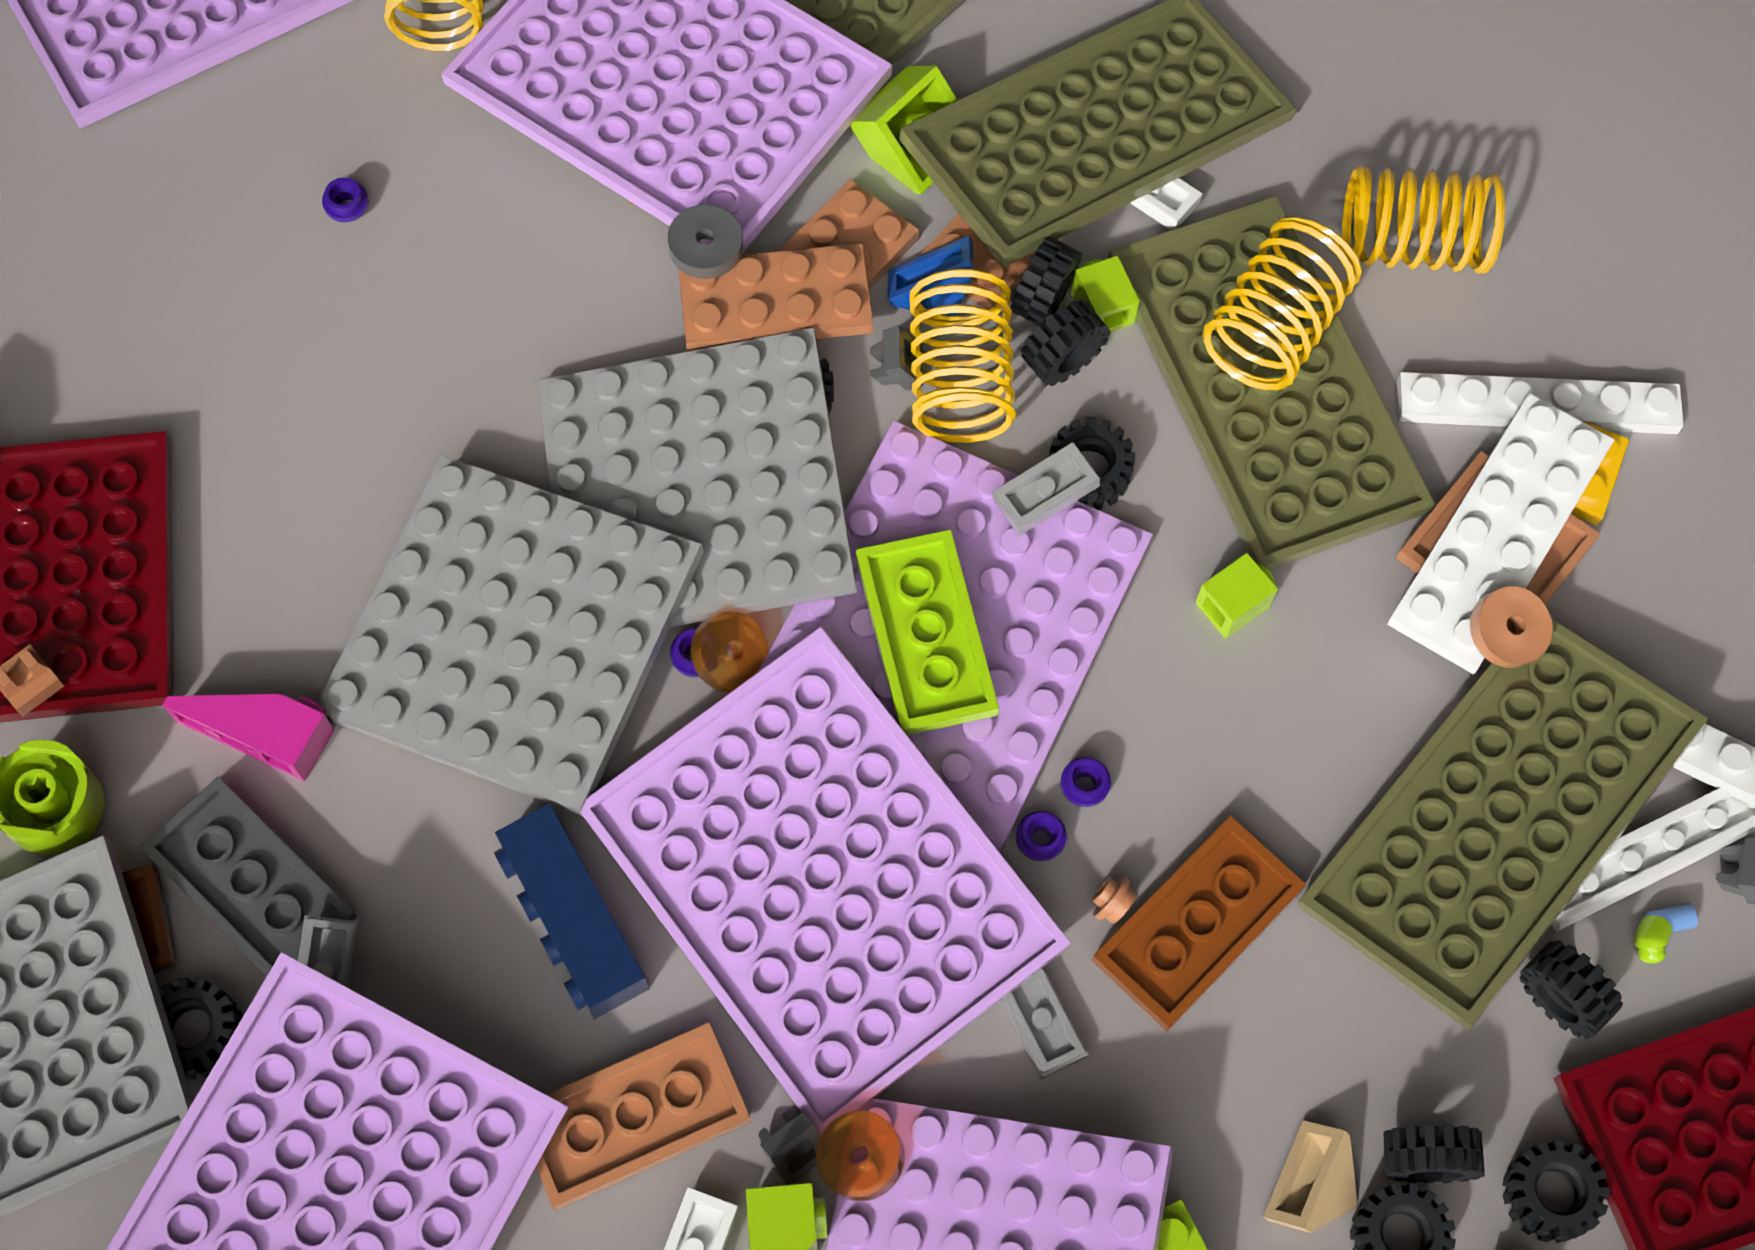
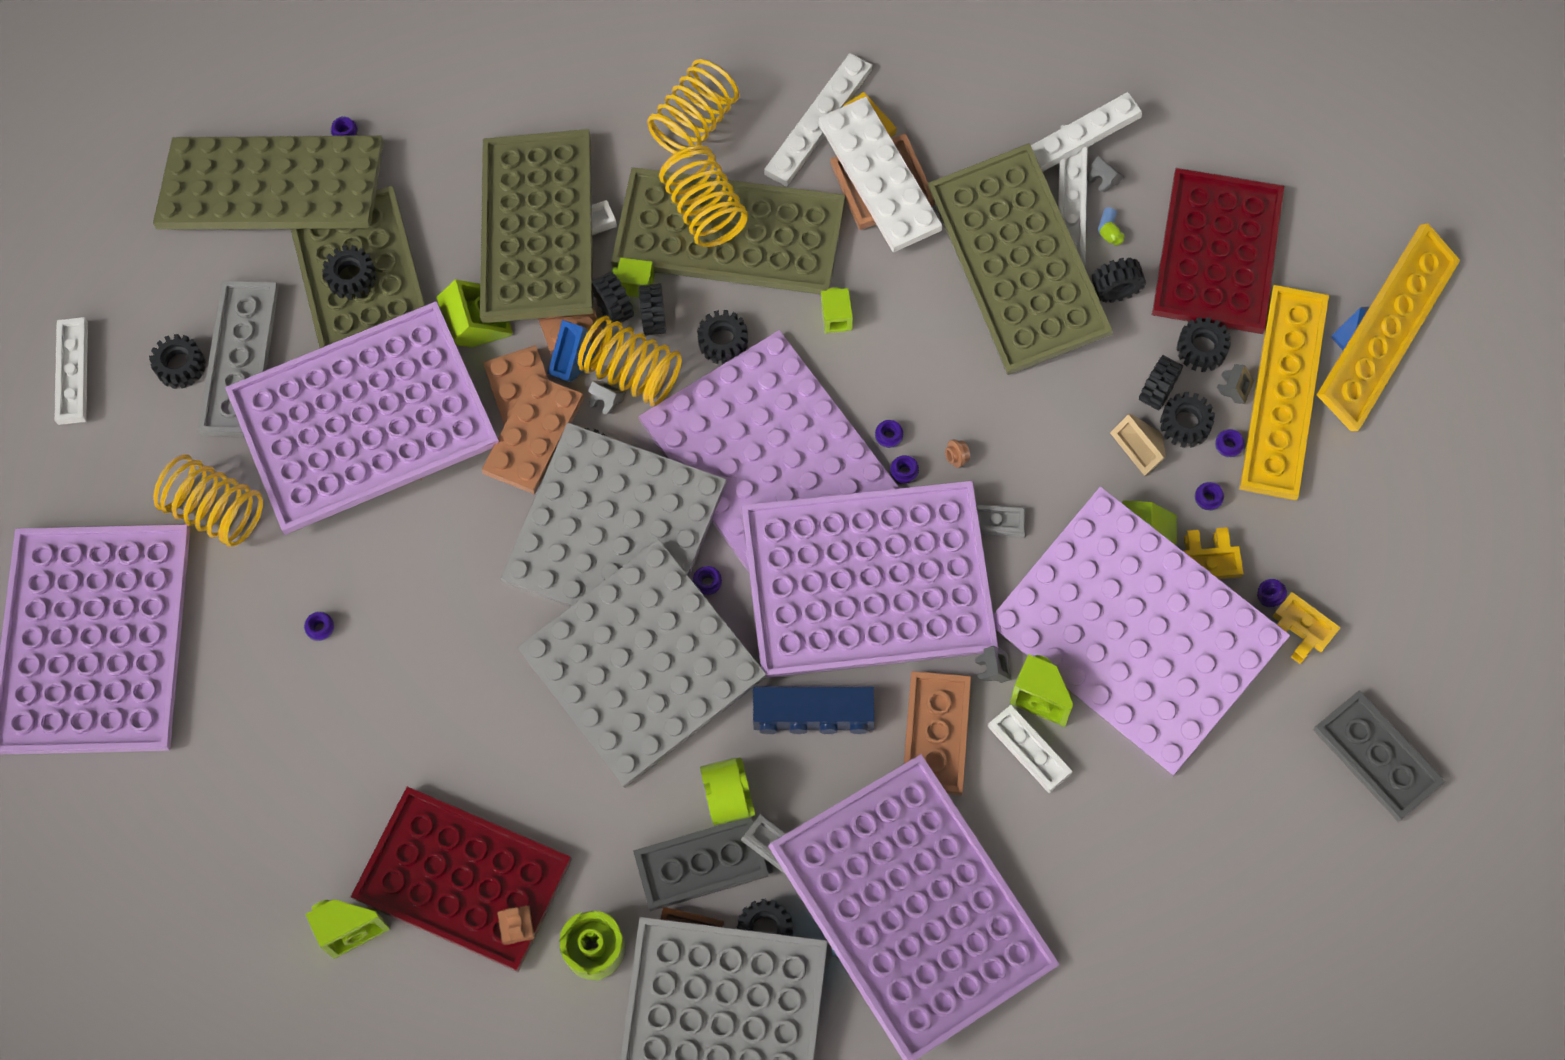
camera: 55 degrees left, 0 degrees up
(260, 725) = (619, 814): dark pink slope -> none
(365, 853) = (727, 791): none -> lime brick
(705, 259) = (483, 435): dark grey piece -> none
(710, 650) = (719, 561): clear orange piece -> none
(877, 1172) = (1006, 633): clear orange piece -> none
(926, 633) = (770, 459): lime plate -> none
(1046, 489) = (728, 362): light grey plate -> none
(1198, 923) = (991, 422): dark orange plate -> none
(1531, 621) = (930, 207): nougat piece -> none

